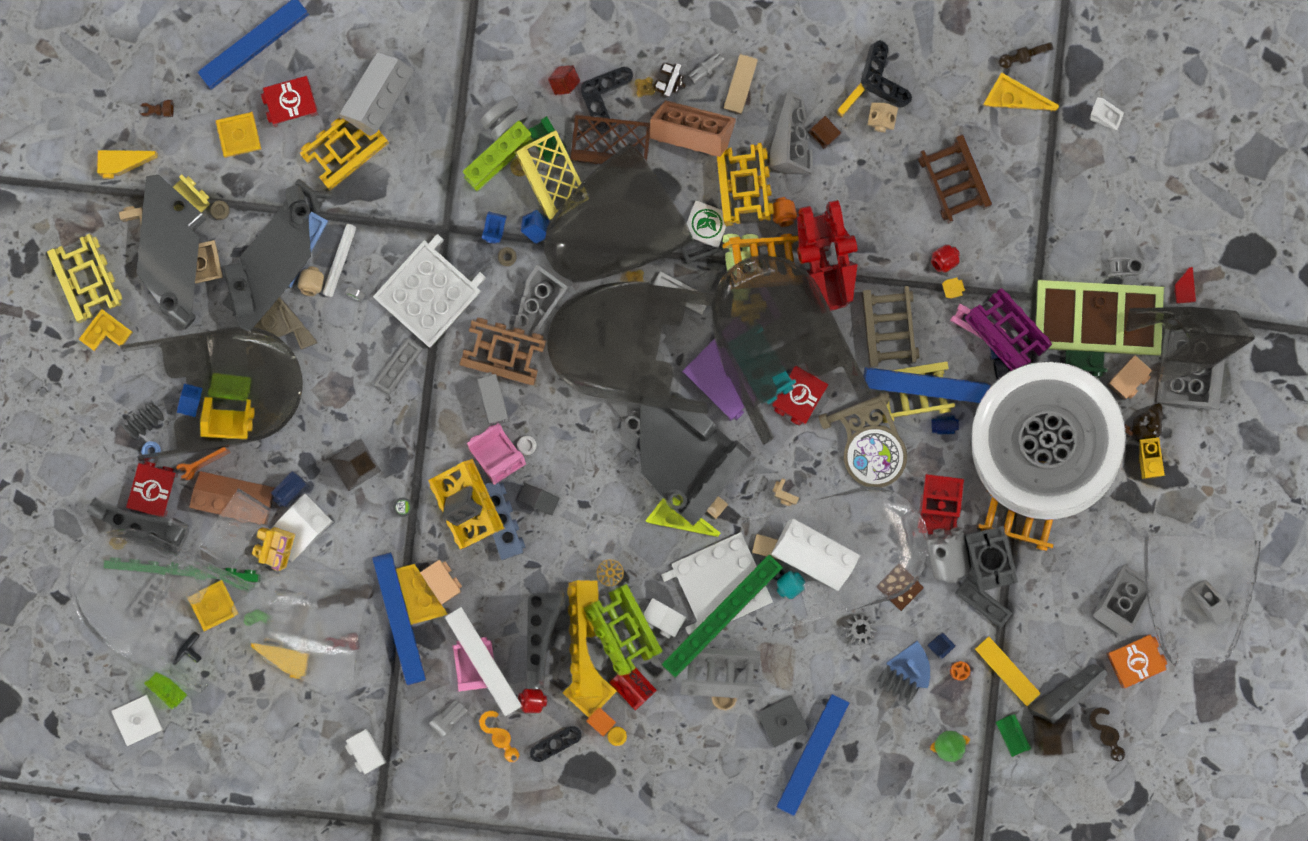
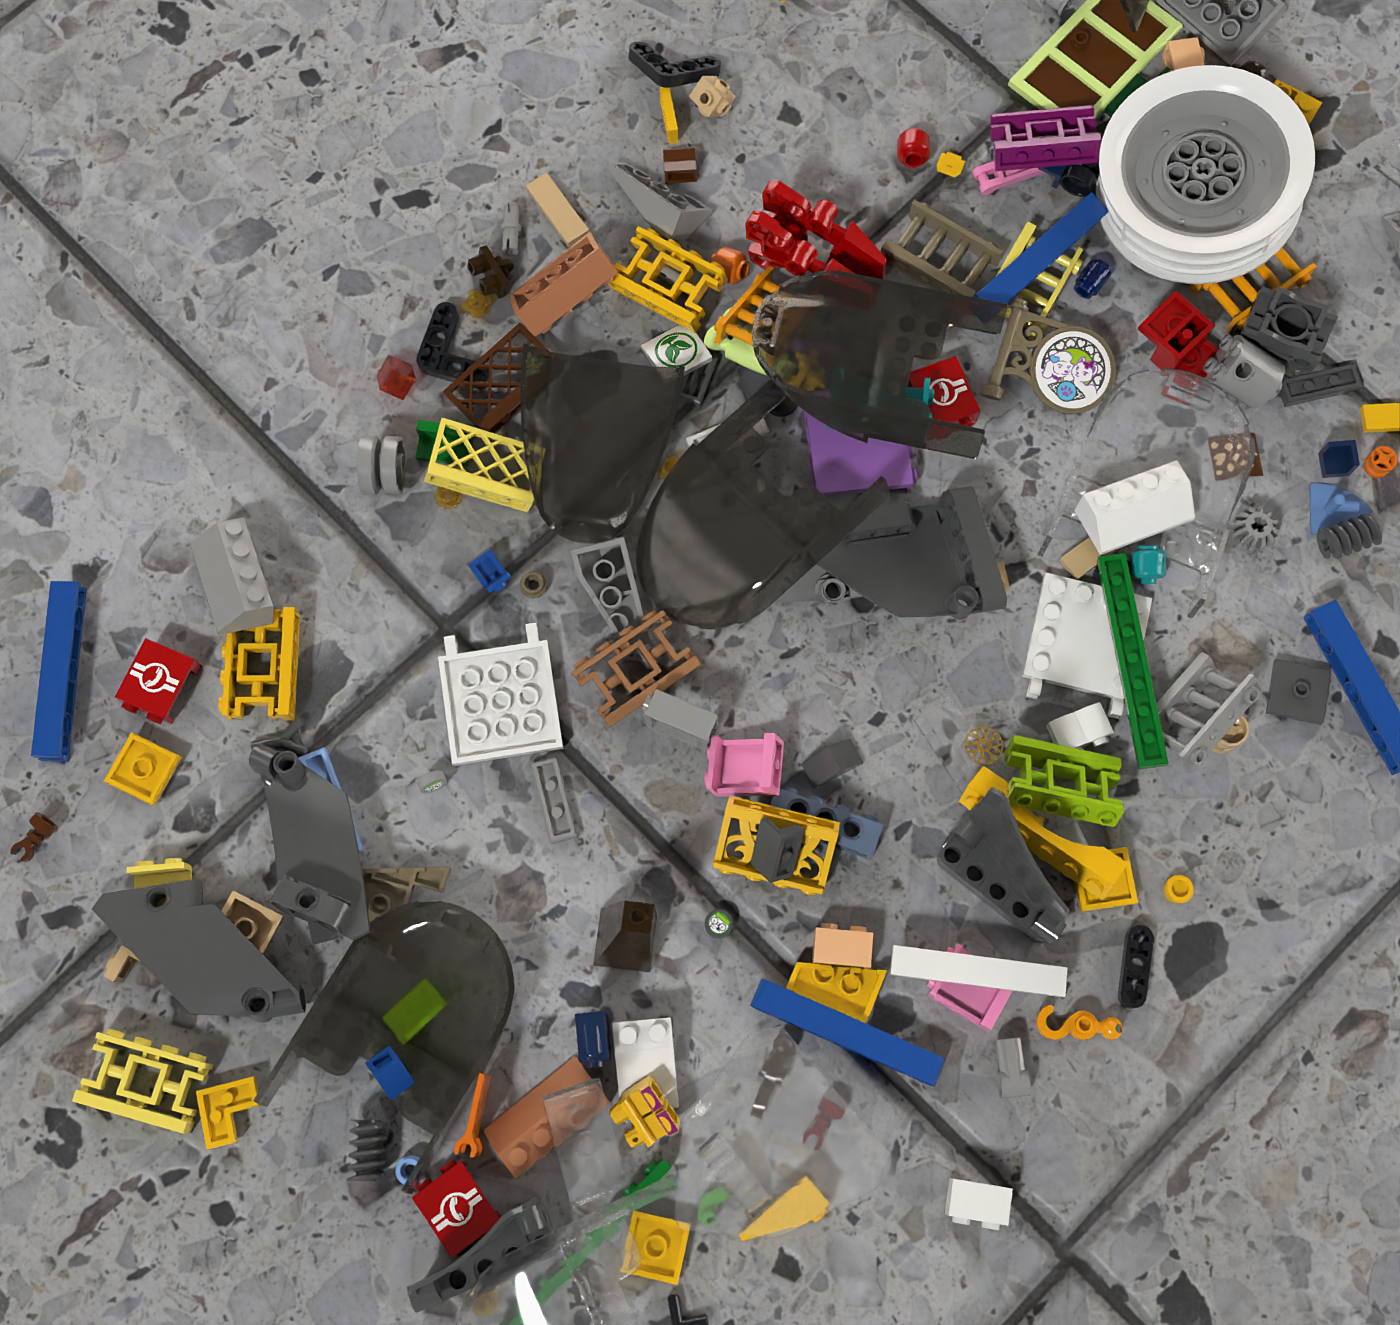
camera: 45 degrees left, 10 degrees down
(118, 162) = (51, 929): yellow slope -> none
(220, 210) = (207, 859): dark tan tile -> none
(226, 422) = (452, 1049): yellow panel -> none
(310, 281) = (375, 820): tan head -> none
(339, 260) = (380, 770): white axle -> none
(496, 156) = (414, 503): lime fence -> none
(526, 445) = (759, 725): white tile -> none
(532, 700) = (1066, 952): red head -> none
(534, 226) = (526, 527): blue panel -> none
(601, 721) = (1151, 892): orange panel -> none
(633, 688) = (1138, 827): red panel -> none
(668, 517) = (967, 634): neon yellow wing -> none
(786, 498) = (1035, 498): tan bracket -> none
(966, 164) = (842, 57): reddish brown fence -> none

